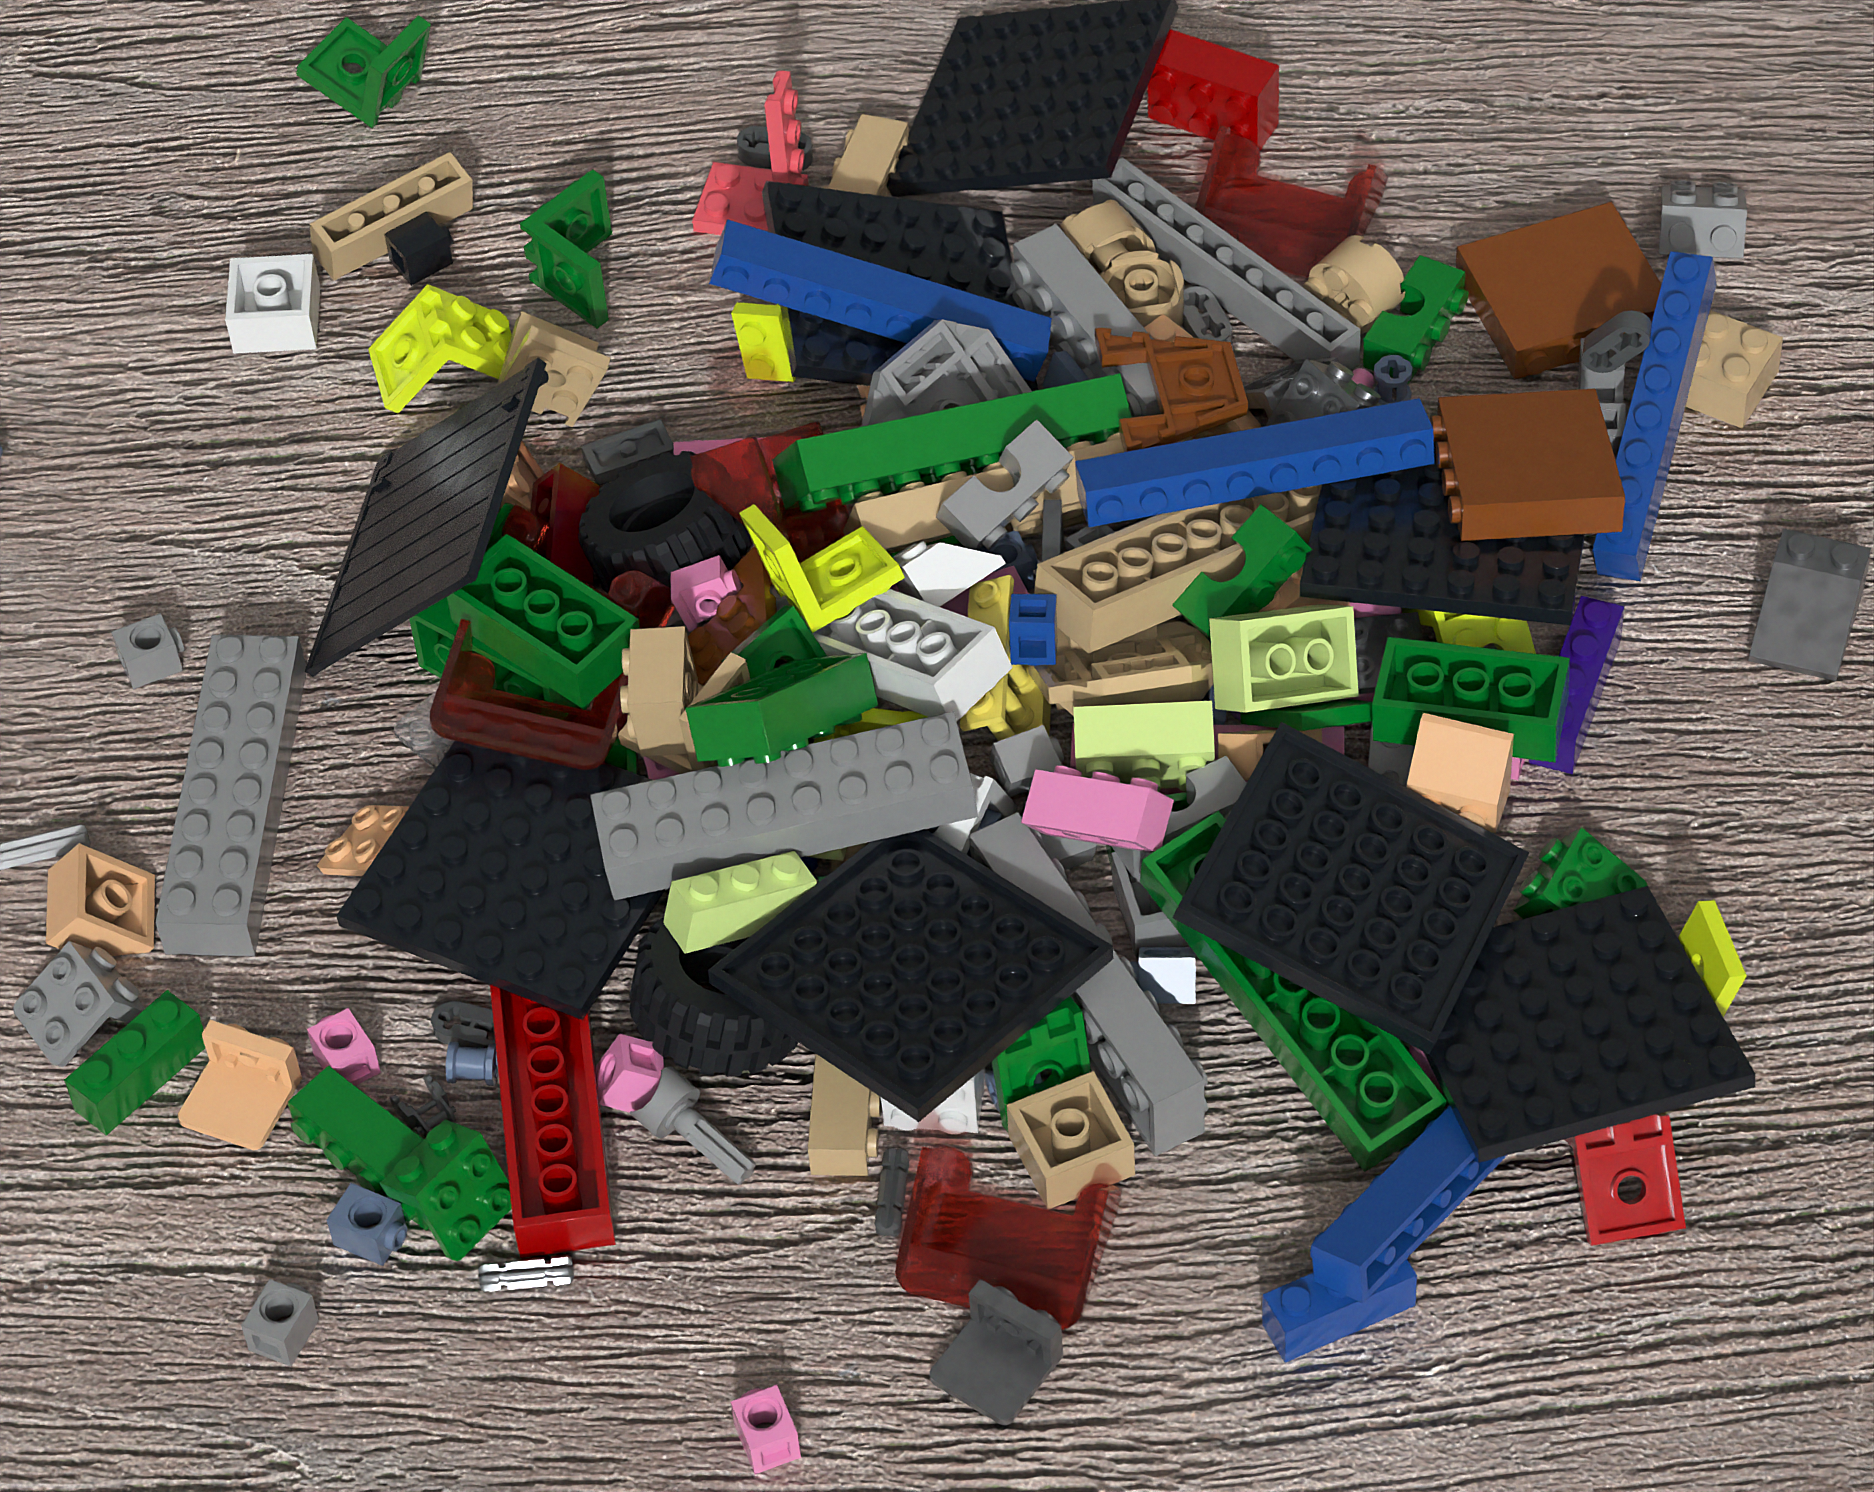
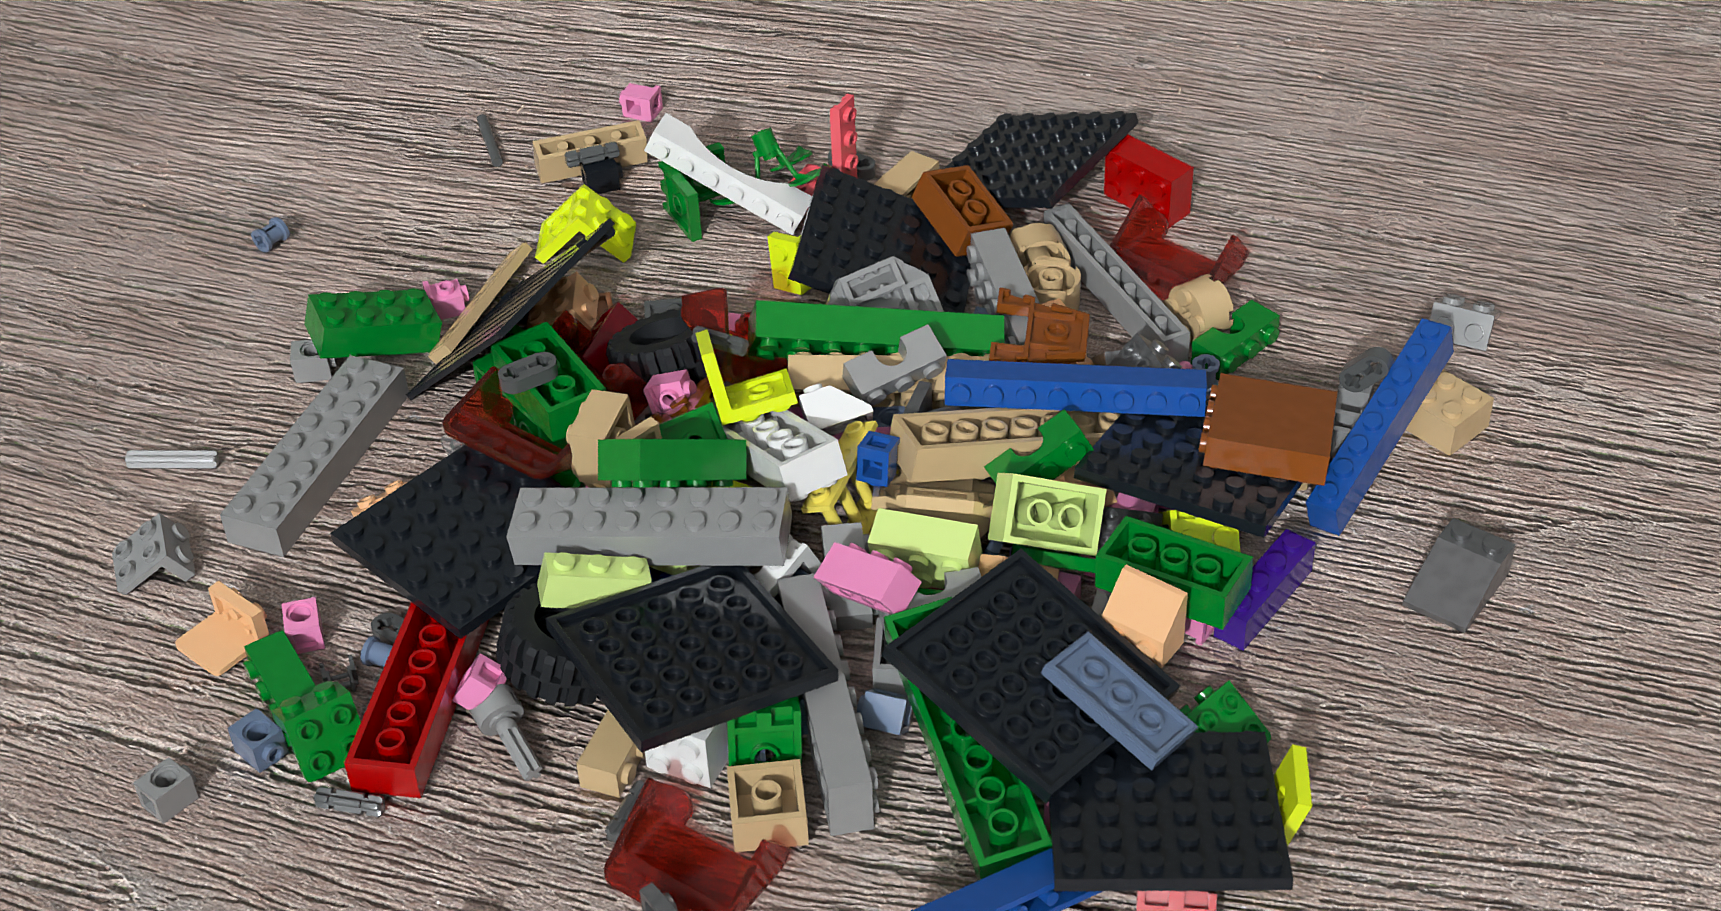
camera: 15 degrees right, 10 degrees down
(100, 903) = (197, 498): light nougat slope -> none
(136, 1062) = (163, 600): green brick -> none
(217, 576) = (372, 323): none -> green brick
(219, 221) = (489, 140): none -> dark grey bar
(273, 303) = (492, 184): white brick -> none
(290, 507) = (447, 297): none -> bright pink brick
(345, 501) = (479, 303): none -> tan tile
(384, 73) = (621, 68): green bracket -> none
(404, 224) = (592, 154): none -> dark grey axle
(422, 109) = (641, 102): none -> bright pink brick
(522, 620) = (528, 373): none -> dark grey beam
(552, 199) = (680, 148): none -> white arch
(571, 364) = (651, 263): tan bracket -> none
(674, 168) = (768, 148): none -> green plant
(779, 513) = (724, 341): none -> dark grey axle
(867, 293) = (855, 237): blue brick -> none
(979, 202) = (958, 206): none -> dark orange brick
(1211, 318) = (1097, 313): light grey beam -> none
(1469, 895) = (1119, 700): none -> sand blue tile
(1555, 285) = (1330, 331): dark orange brick -> none

